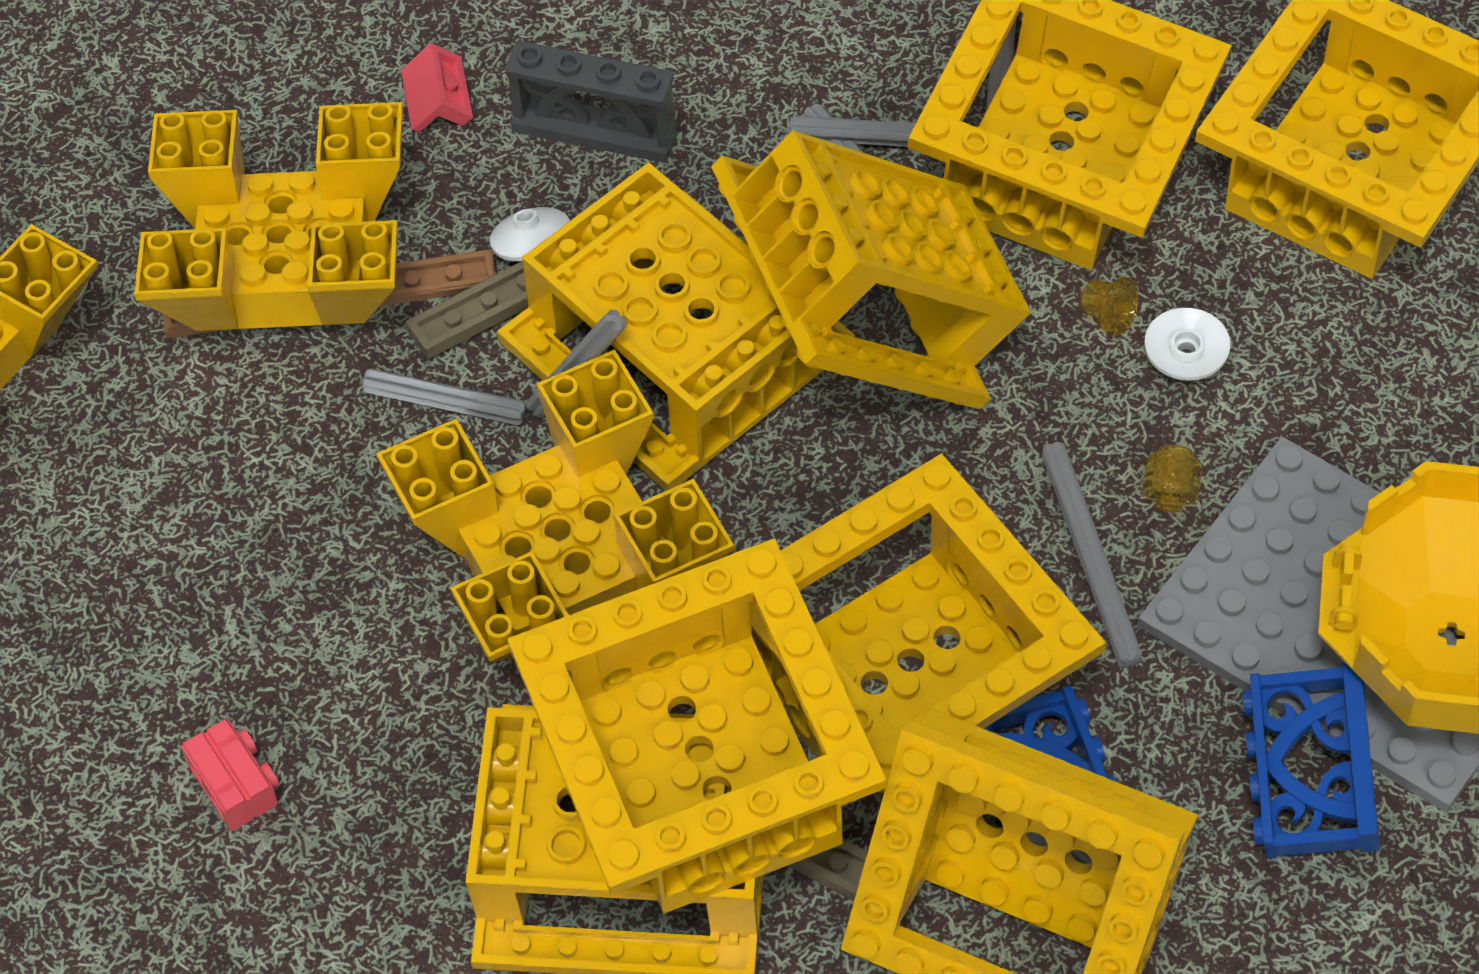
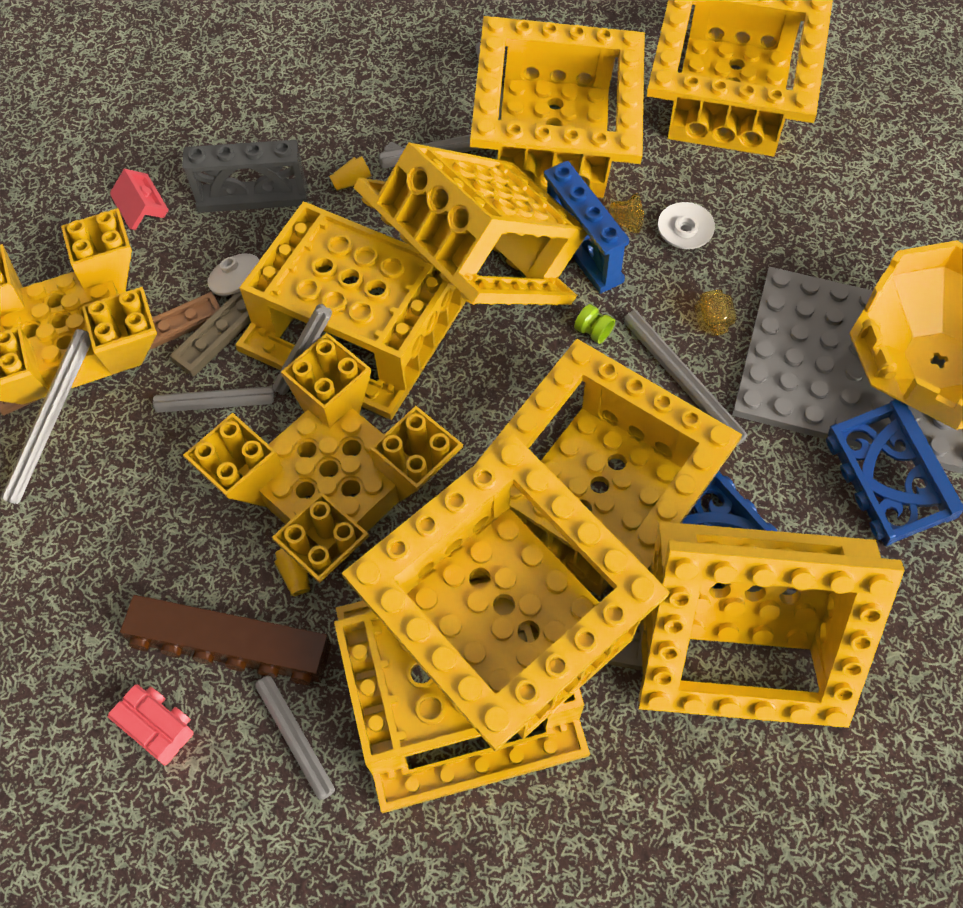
camera: 20 degrees left, 5 degrees up
(223, 355) = (46, 417): none -> axle
(356, 704) = (226, 639): none -> reddish brown brick
(398, 847) = (295, 738): none -> light grey axle
(466, 650) = (292, 573): none -> yellow cone
(742, 135) = (349, 173): none -> yellow cone
(995, 444) = (594, 323): none -> lime wheel
(1044, 328) = (603, 248): none -> blue fence

